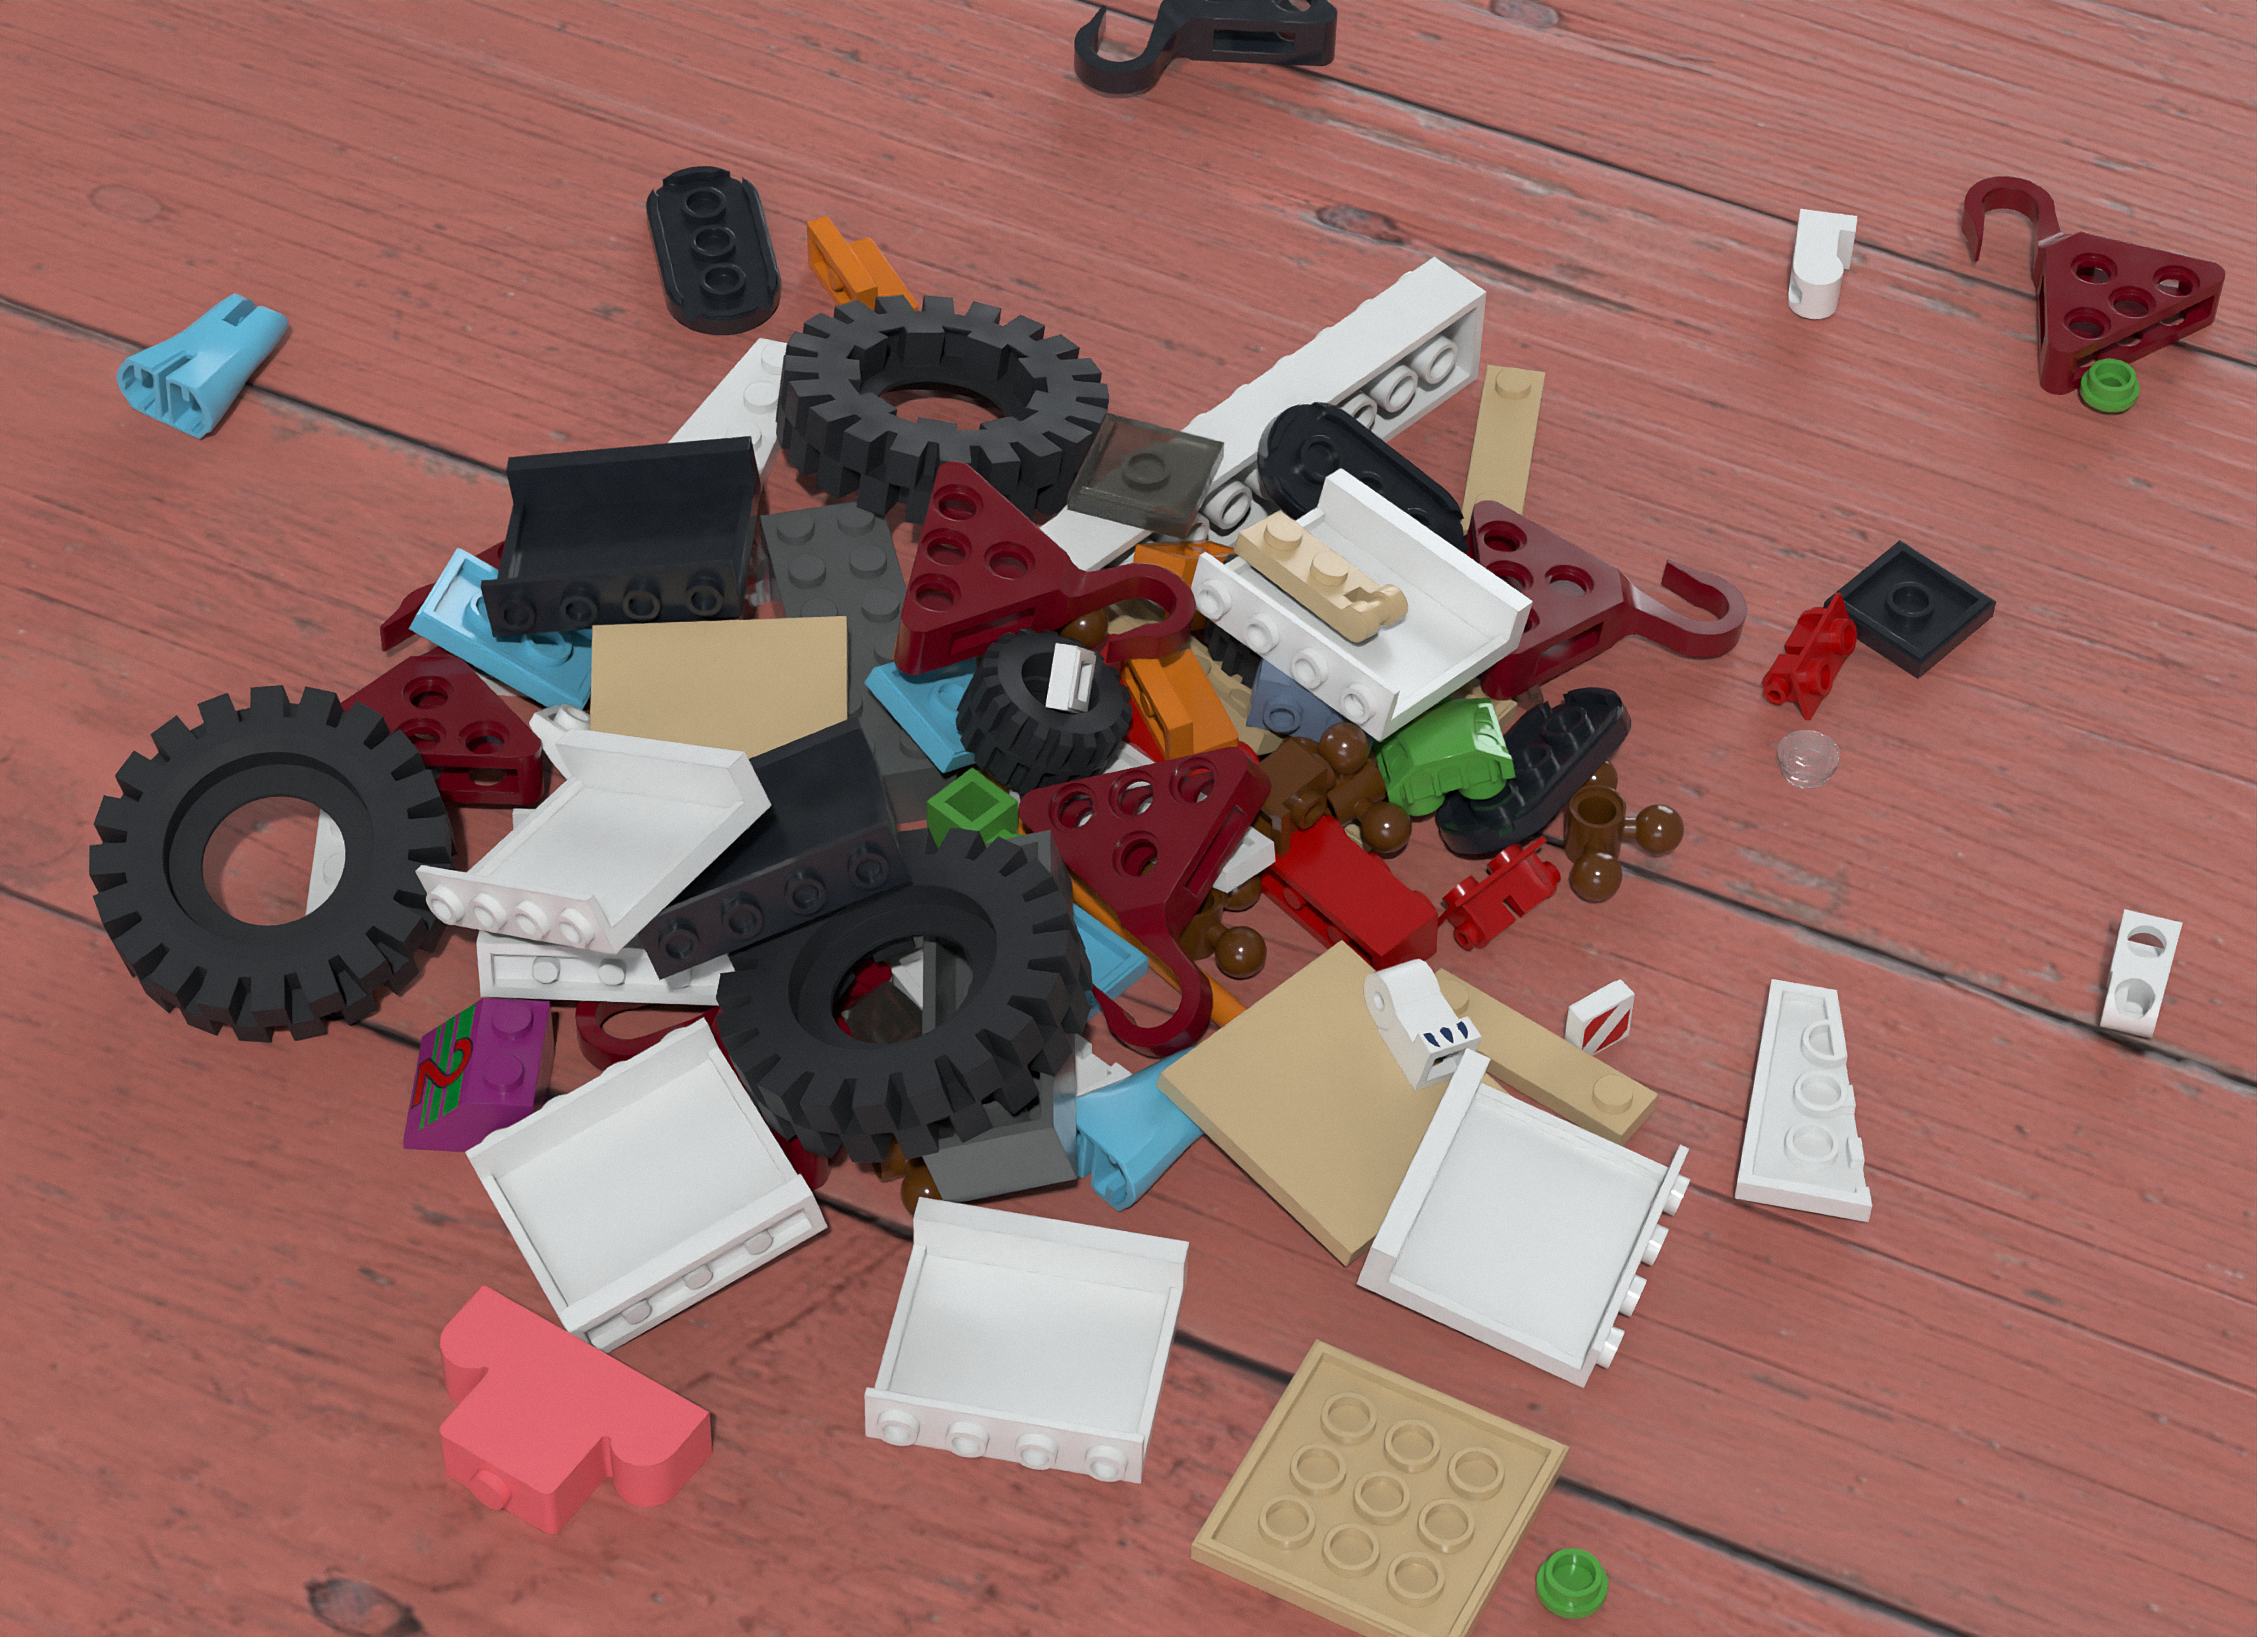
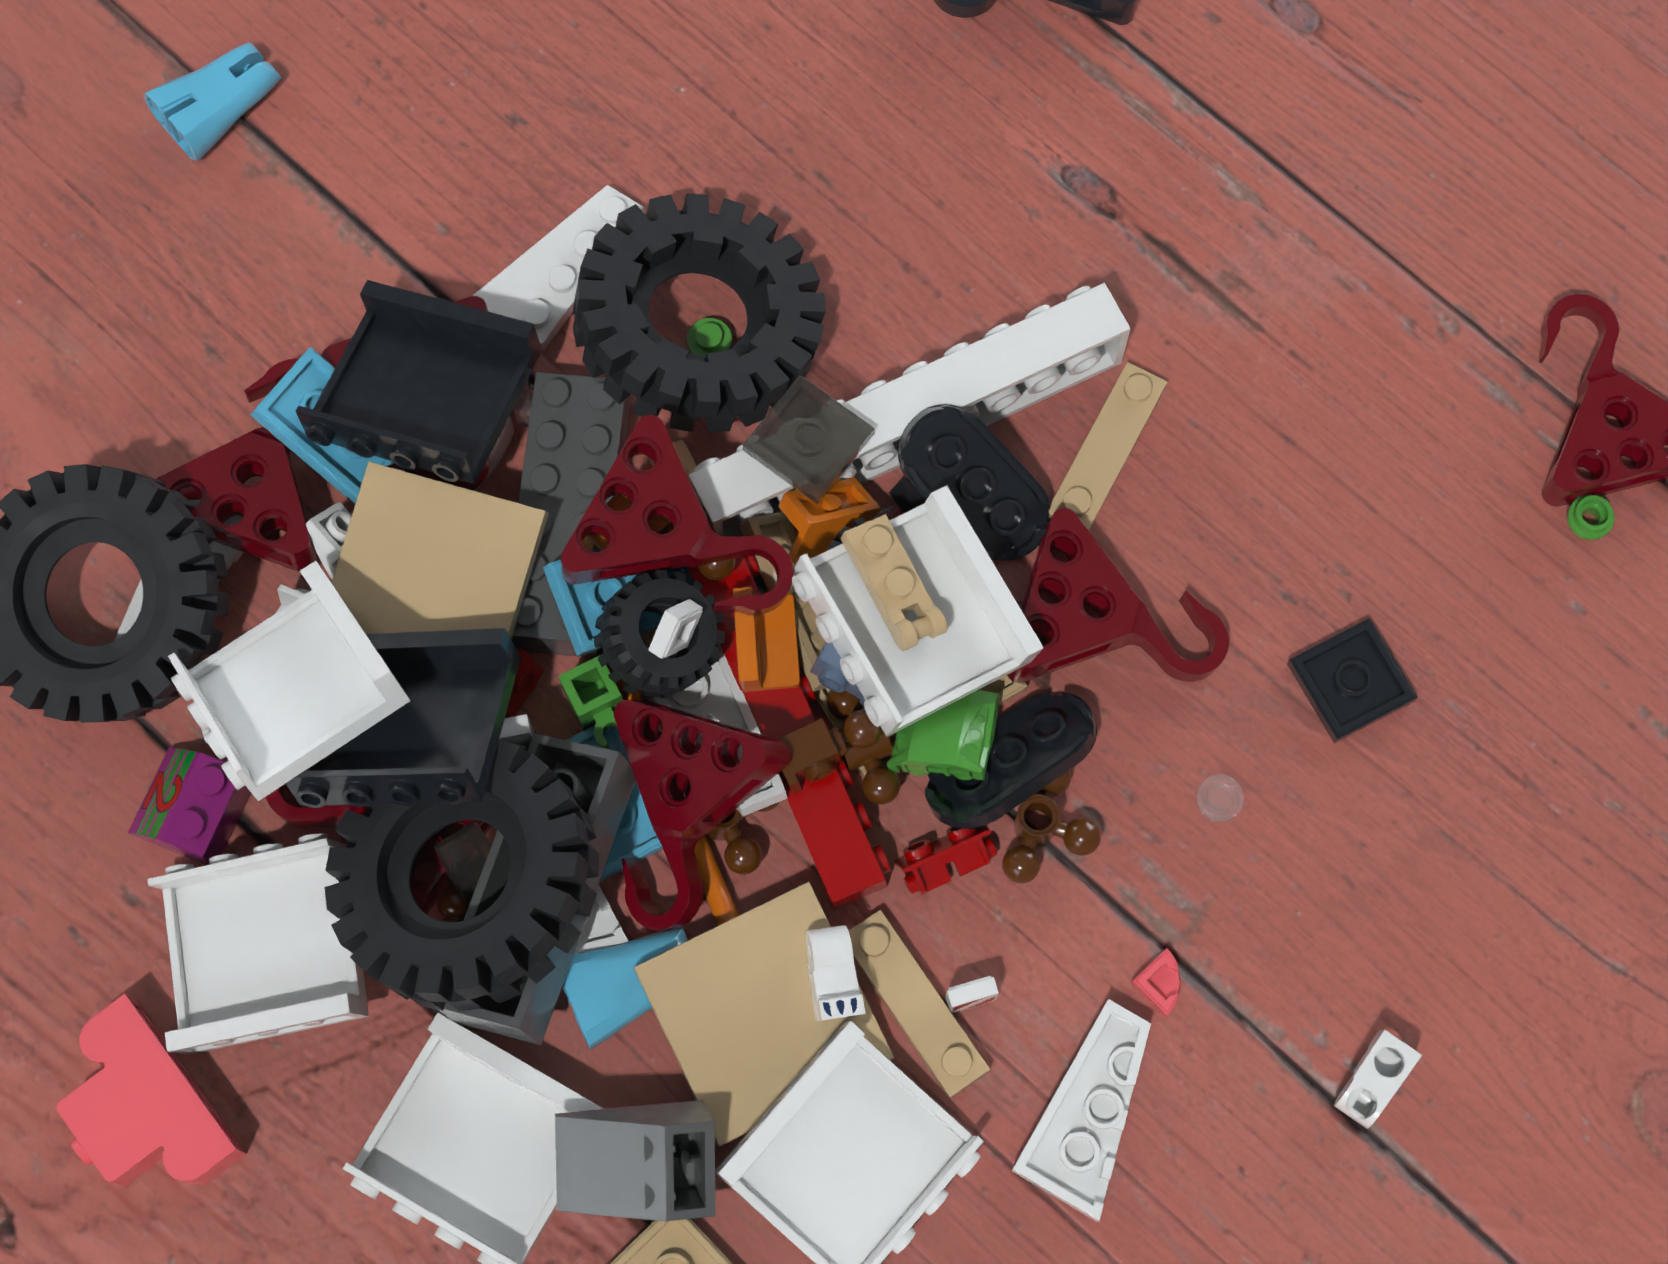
camera: 20 degrees right, 25 degrees up
(713, 251) = (606, 86): black tile -> none
(851, 269) = (702, 146): orange panel -> none
(1257, 1278) = (637, 1161): none -> slope
(1812, 657) = (1274, 696): red hinge -> none
(1818, 263) = (1409, 342): white leg -> none
(1825, 960) = (1160, 983): none -> coral tile

